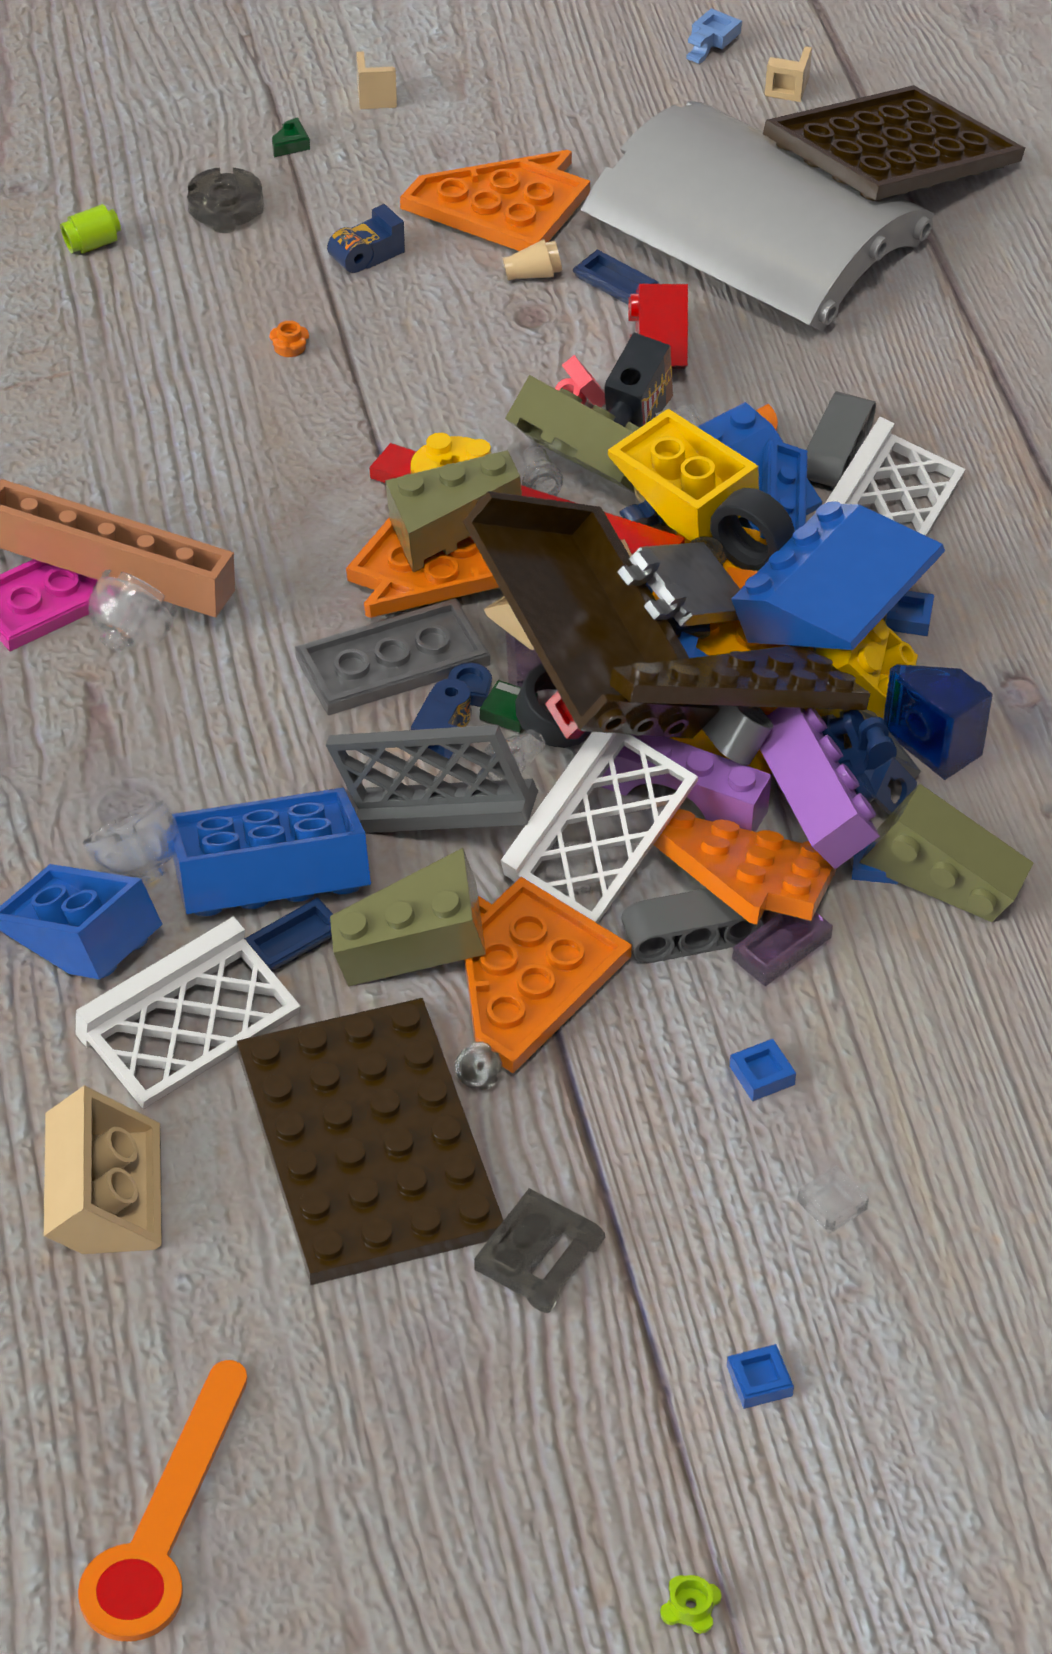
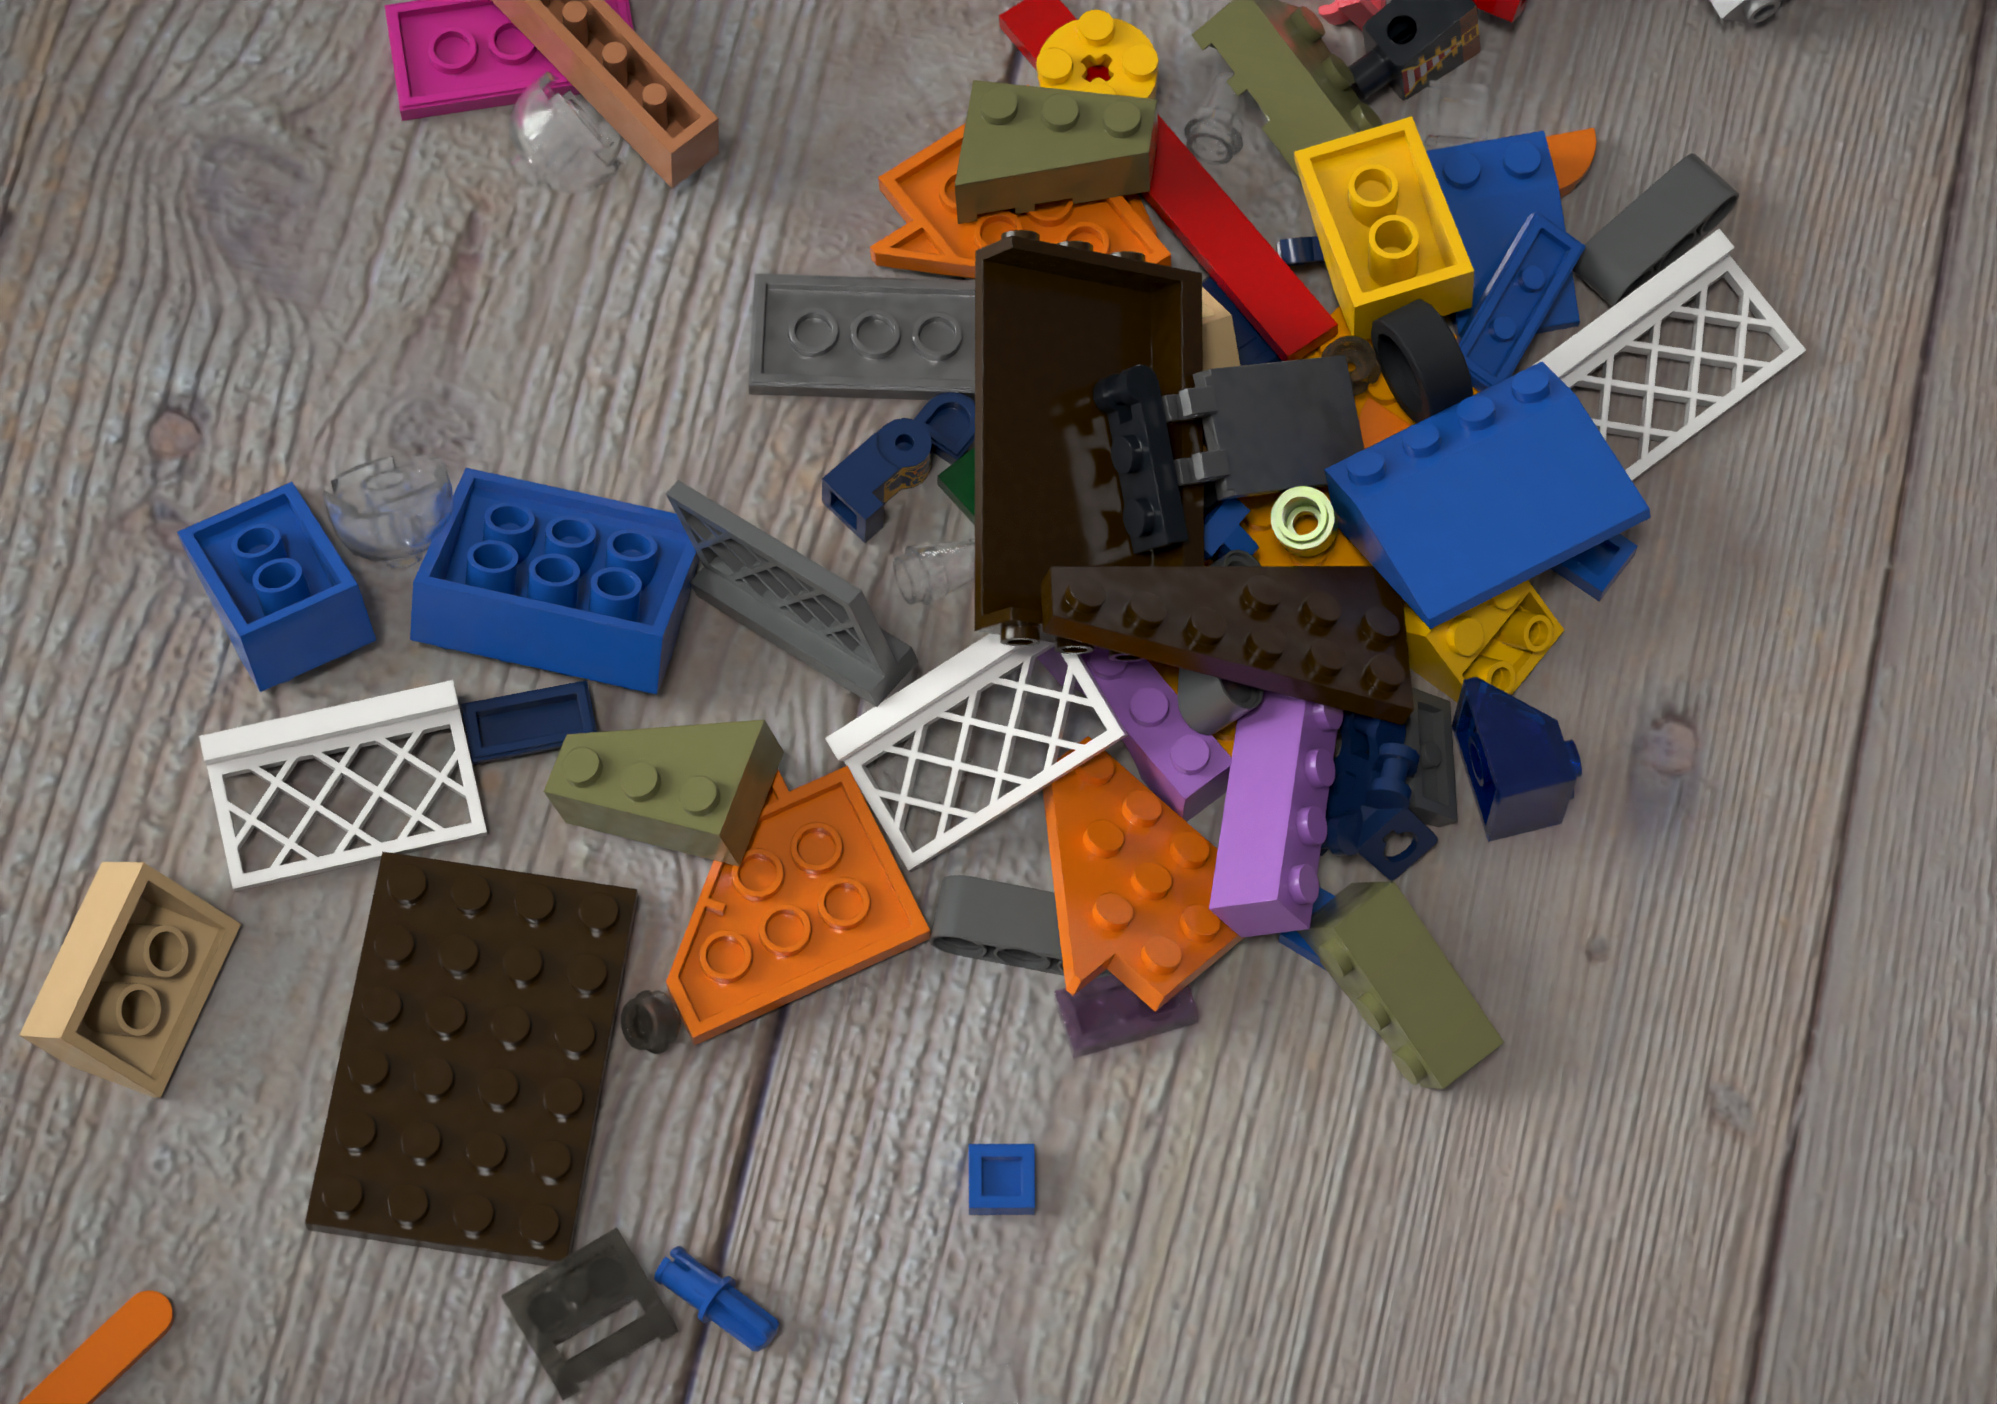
camera: 25 degrees right, 20 degrees up
(620, 1206) = (717, 1299): none -> blue axle
(624, 611) = (1142, 458): none -> black plate
(733, 630) = (1299, 502): none -> brick

